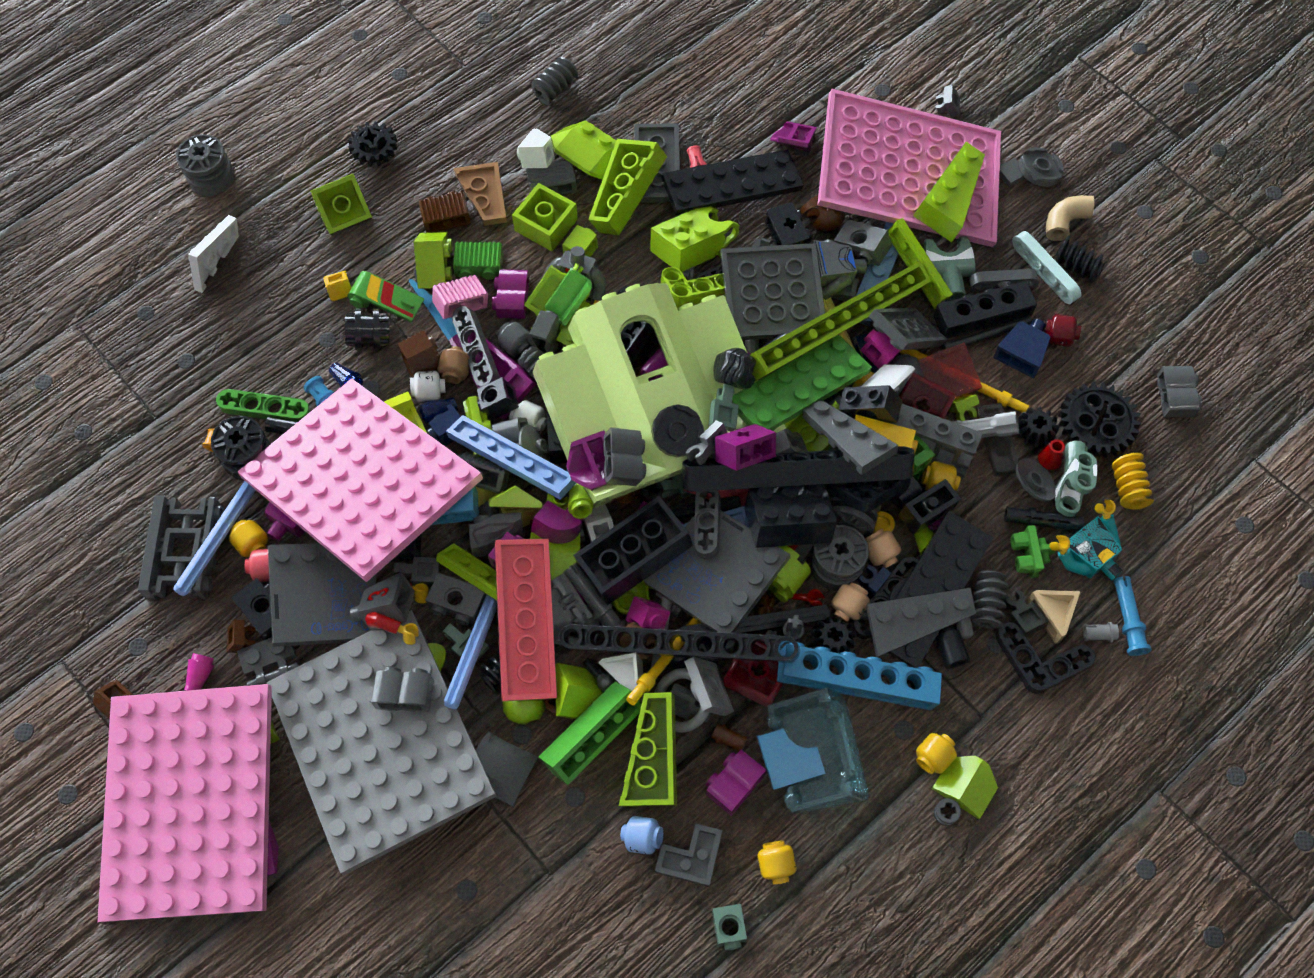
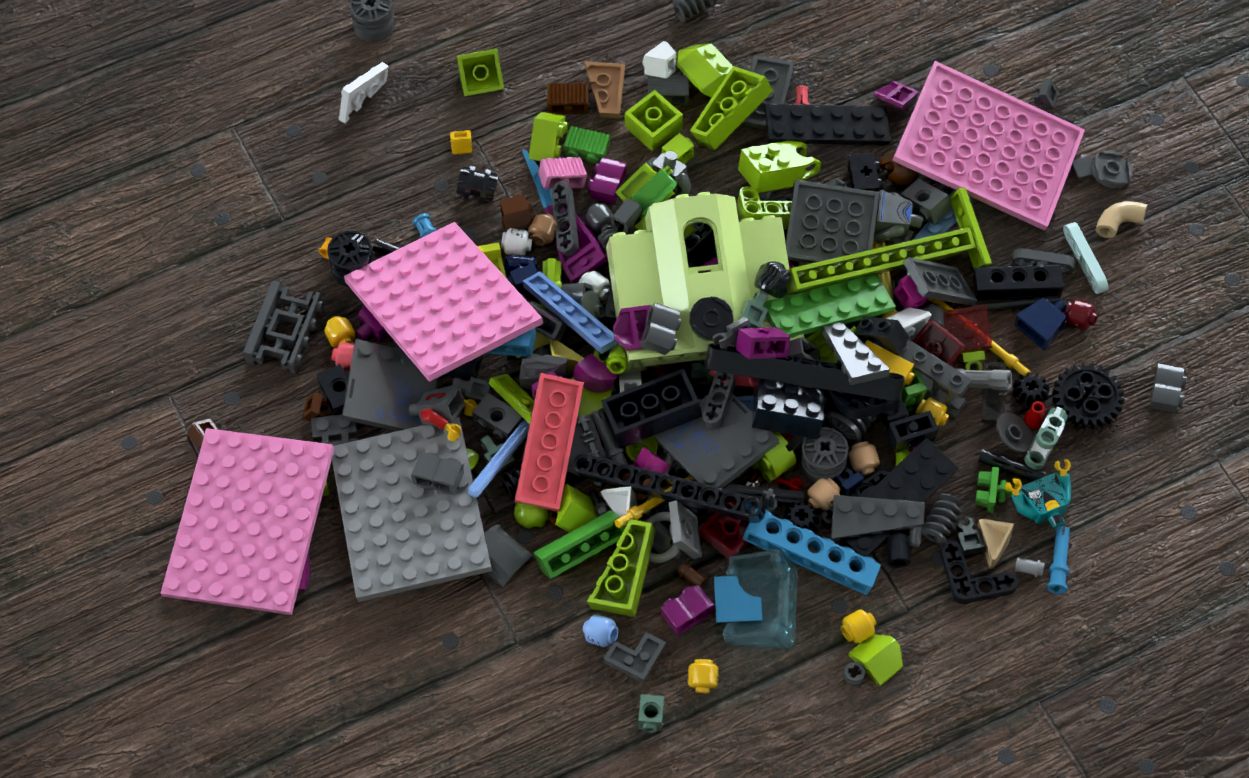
camera: 15 degrees right, 5 degrees down
(198, 671) = (278, 425): dark pink cone -> none
(214, 539) = (314, 325): light blue axle -> none
(264, 403) = (377, 226): bright green beam -> none
(343, 374) = (448, 217): clear blue cone -> none
(361, 143) = (529, 29): black gear -> none
(385, 295) = (499, 158): bright green door -> none
(497, 398) = (572, 264): black brick -> none
(514, 498) = (565, 345): lime slope -> none
(885, 522) = (873, 437): yellow tile -> none
(950, 197) = (1011, 177): lime wedge -> none
(953, 265) = (1000, 238): sand green connector -> none
(1080, 260) = (1116, 259): black piece -> none
(1131, 481) = (1098, 452): yellow piece -> none

